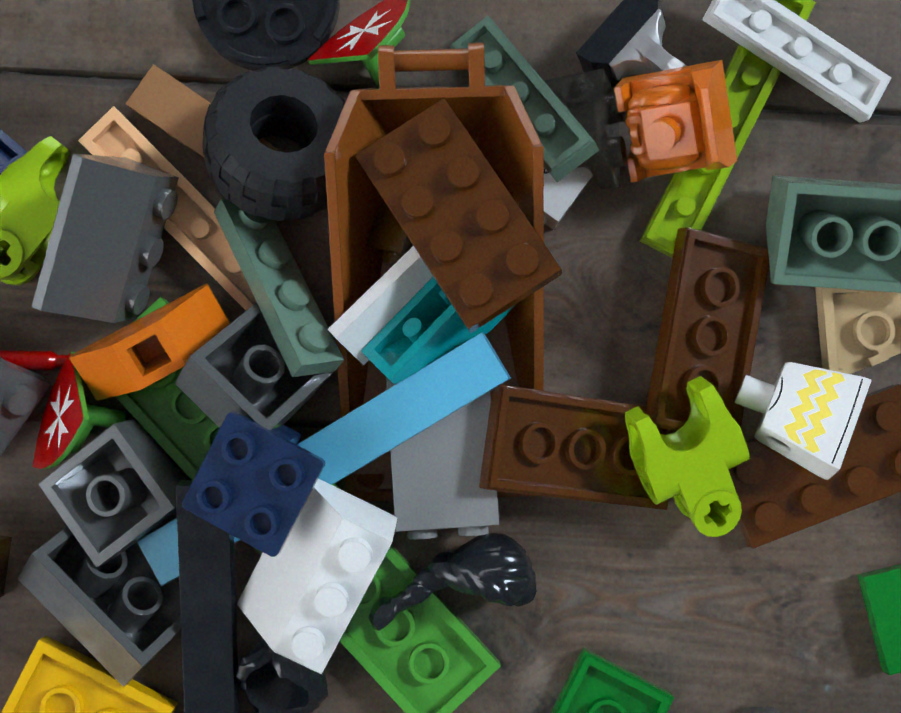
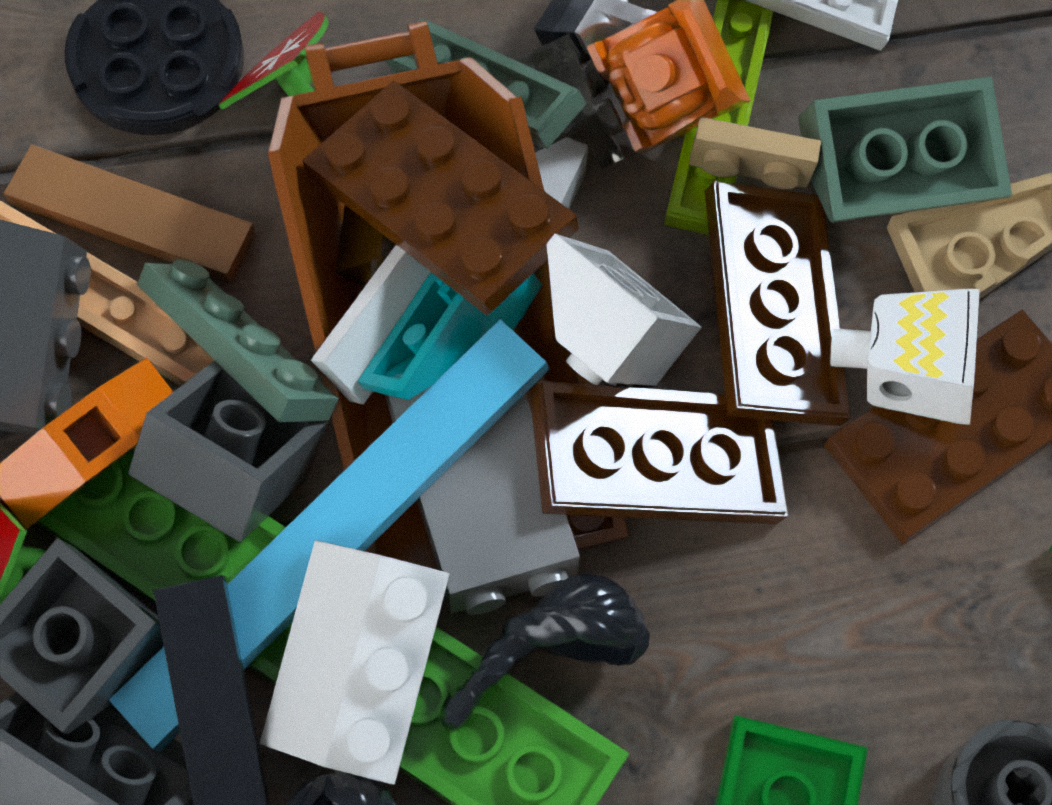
camera: 15 degrees left, 20 degrees down
(254, 482) = (257, 547): dark blue bracket -> none
(262, 106) = (198, 185): black tyre -> none
(572, 340) = (612, 317): none -> white slope
(693, 460) = (802, 437): lime piece -> none
(744, 219) = (754, 152): none -> tan plate

